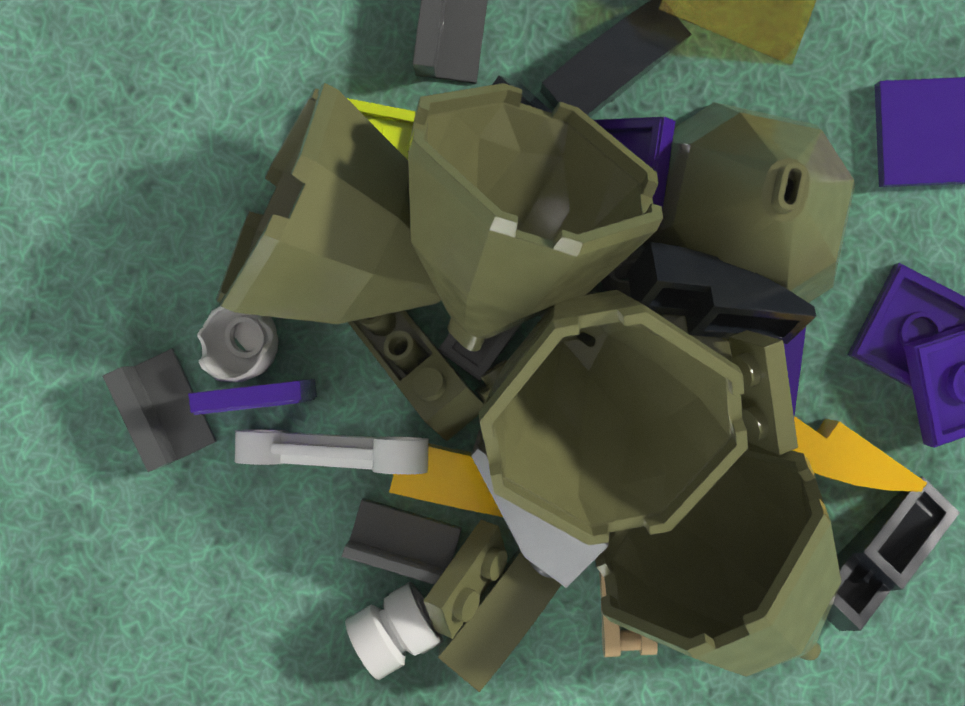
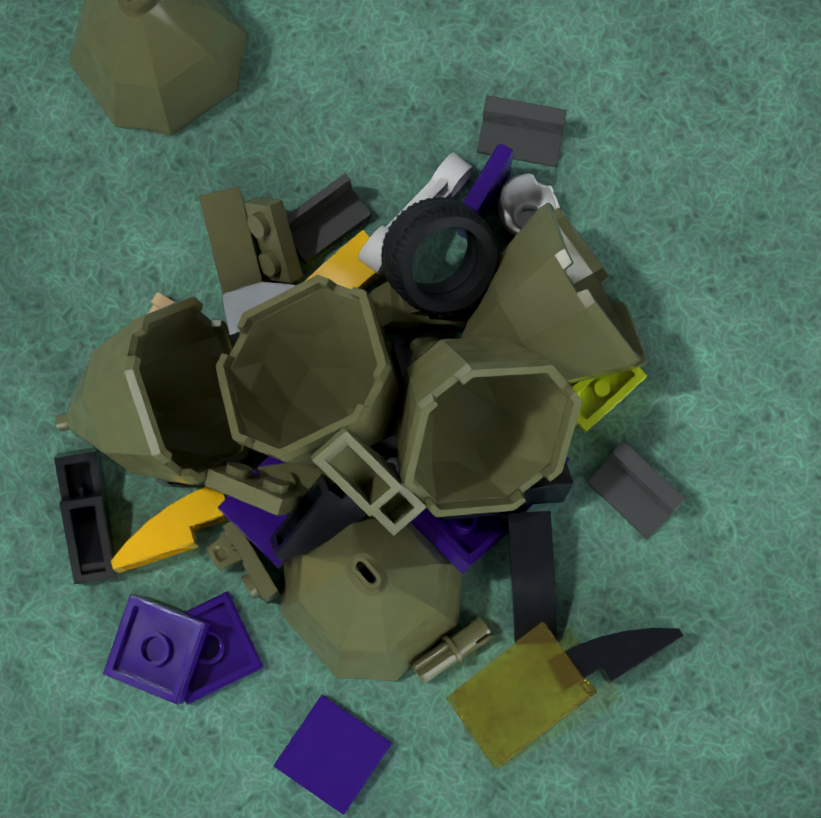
camera: 135 degrees right, 10 degrees down
(372, 338) = (466, 282): none -> black tyre
(386, 634) = (275, 167): white wheel -> none
(686, 265) = (368, 480): none -> olive slope
(746, 89) = (452, 649): none -> olive axle
(822, 334) = (235, 548): none -> olive hinge

